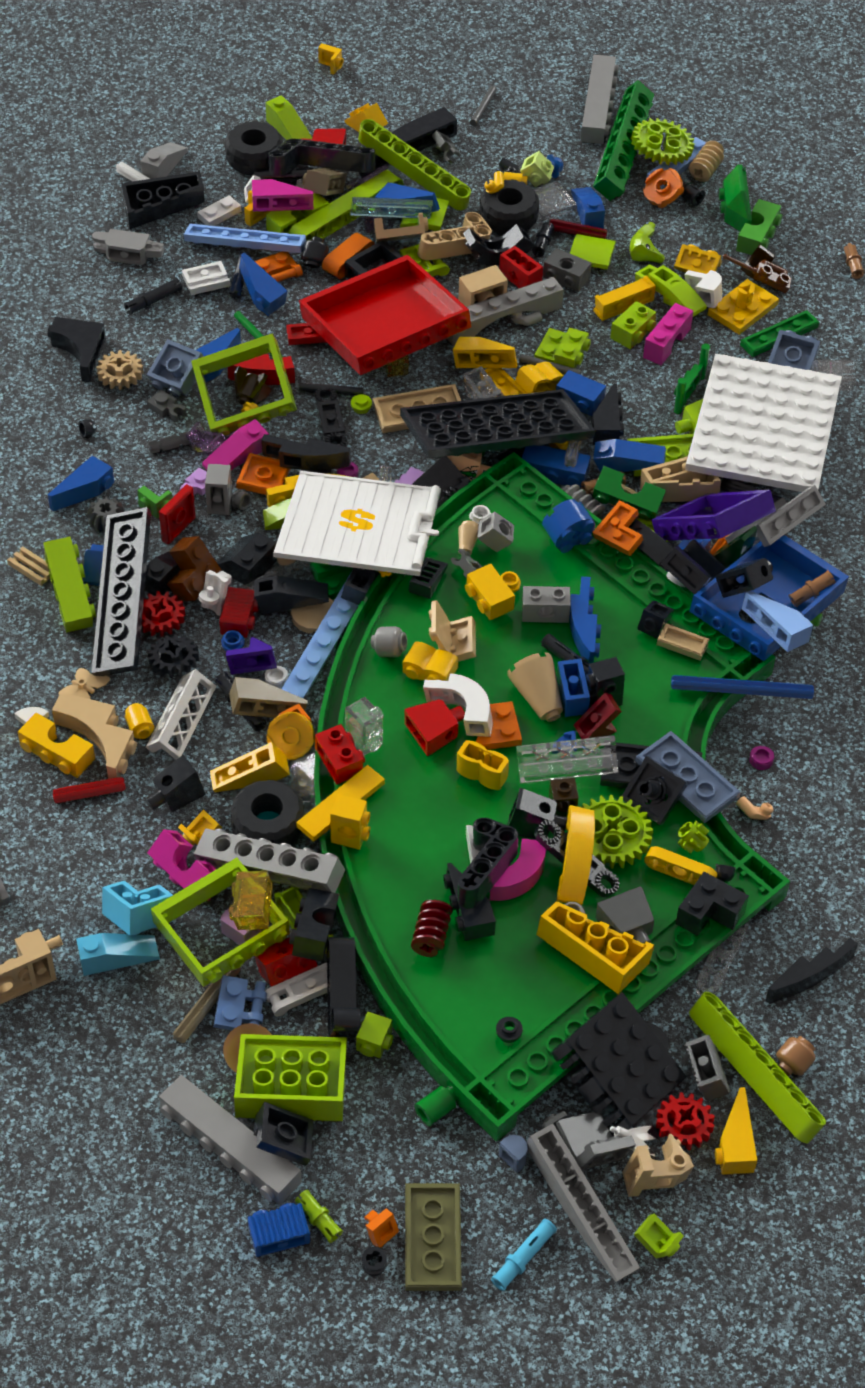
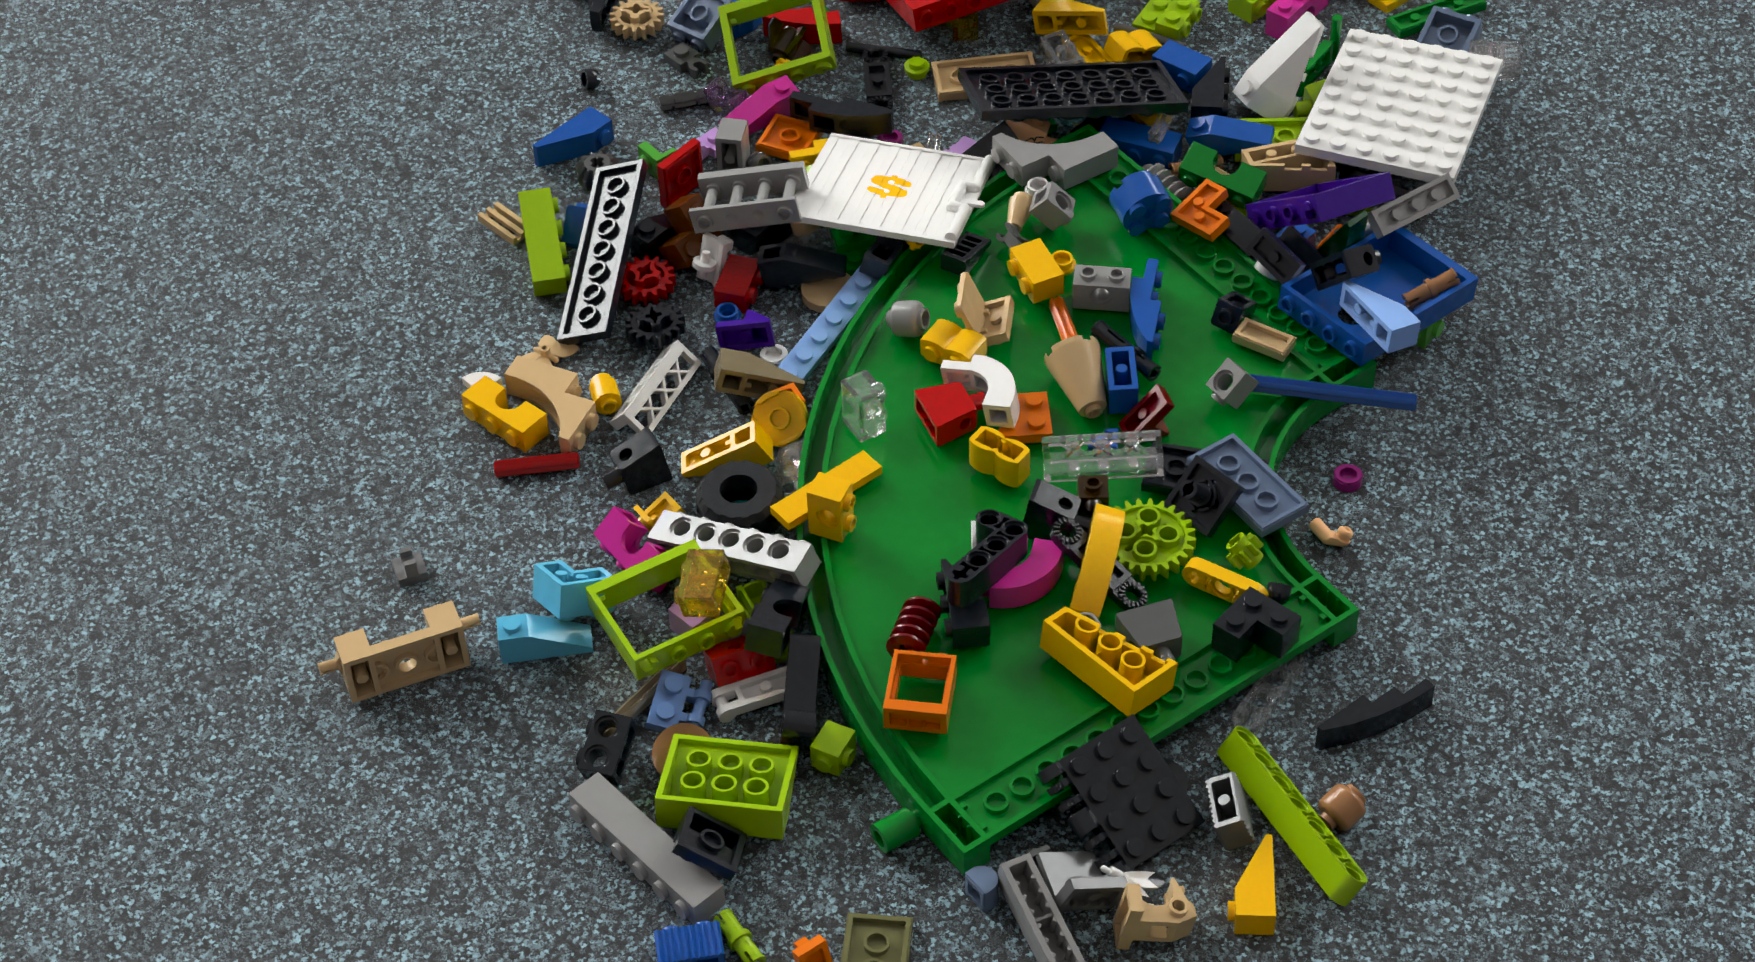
camera: 10 degrees right, 5 degrees down
(191, 1050) = (615, 747): none -> black brick
(242, 523) = (749, 182): none -> light grey fence
(339, 753) = (831, 435): red brick -> none
(444, 1006) = (915, 714): none -> orange window
(499, 490) = (1064, 162): none -> light grey arch
(509, 1036) = (988, 753): black plate -> none
(517, 636) = (1062, 317): none -> orange axle
(606, 677) = (1162, 367): black brick -> none
(661, 401) = (1274, 78): none -> white wedge
(672, 688) = (1241, 385): none -> light grey brick
(682, 1110) = (1196, 868): red gear -> none

